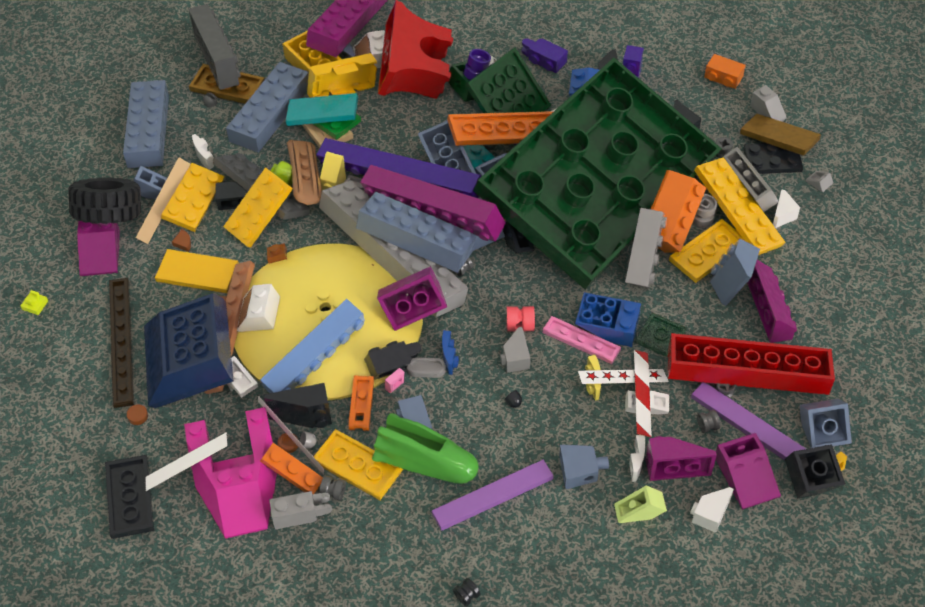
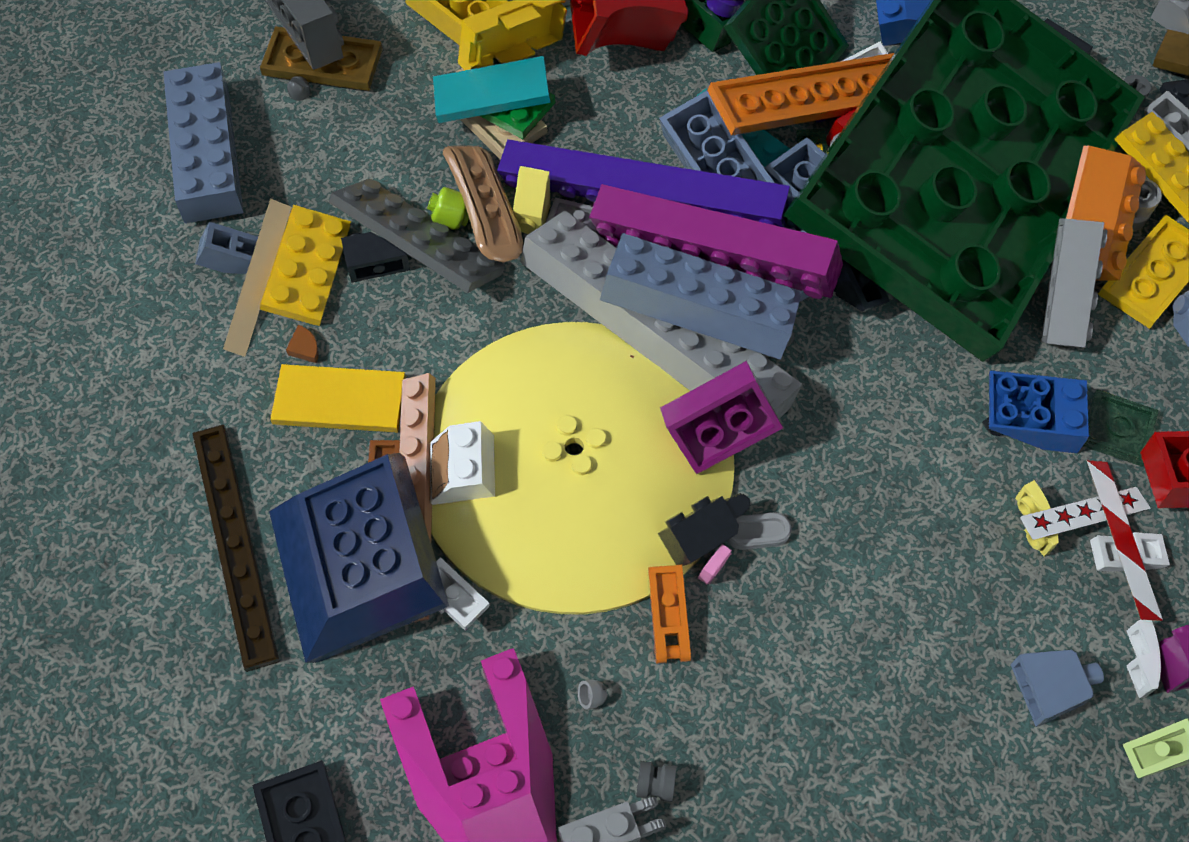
camera: 10 degrees left, 10 degrees up
(34, 303) = (70, 490): neon yellow tile -> none
(98, 248) = (162, 373): magenta slope -> none
(104, 200) = (160, 293): black tyre -> none
(137, 414) = (289, 681): dark orange tile -> none
(186, 461) = (397, 771): white sticker -> none
(203, 154) = (303, 180): white slope -> none
(258, 207) = (422, 275): yellow plate -> none
(267, 107) = (398, 92): sand blue brick -> none
(276, 253) = (467, 352): dark orange plate -> none
(287, 443) = (559, 701): dark orange tile -> none
(288, 432) = (588, 712): white sticker -> none
(291, 469) = (581, 758): orange plate -> none
(301, 406) = (577, 637): black slope -> none
(314, 348) = (572, 533): medium blue brick -> none
(354, 463) = (685, 727): yellow tile -> none
(414, 410) = (764, 627): sand blue slope -> none
(423, 451) = (798, 696): bright green piece -> none
(449, 352) = (791, 504): blue slope -> none
(492, 495) = (921, 756): medium lavender tile -> none
(514, 399) = (916, 574): black hinge -> none
(516, 353) = (902, 489): light grey slope -> none
(520, 318) = (896, 426): coral wheel -> none
(581, 340) = (996, 450): bright pink tile -> none

